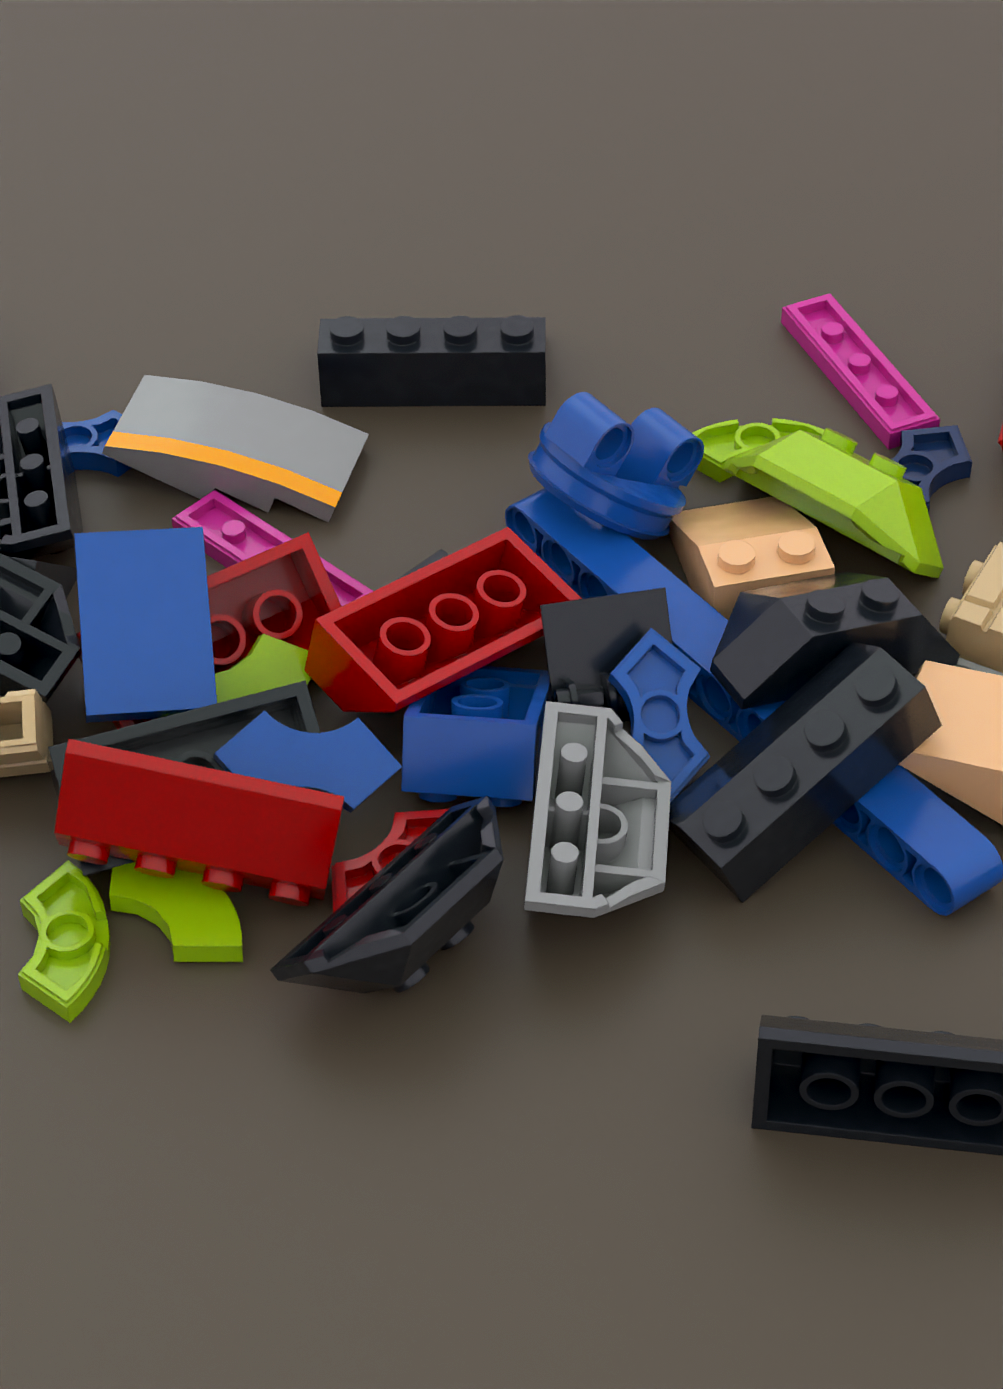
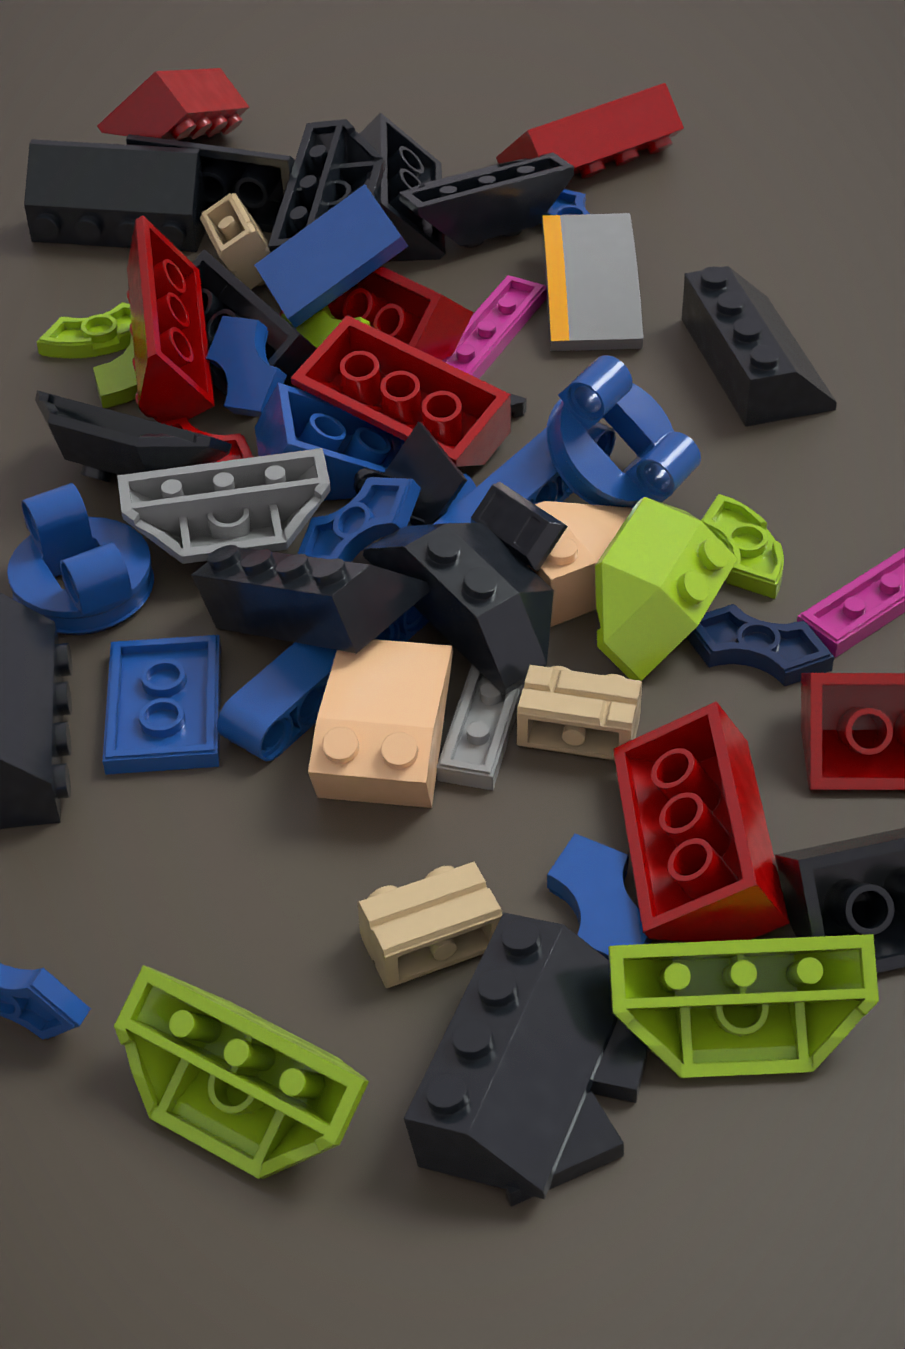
camera: 75 degrees right, 0 degrees up
(683, 959) = (100, 561): none -> blue piece
(750, 562) = (519, 524): none -> black tile
(876, 962) = (163, 705): none -> blue tile

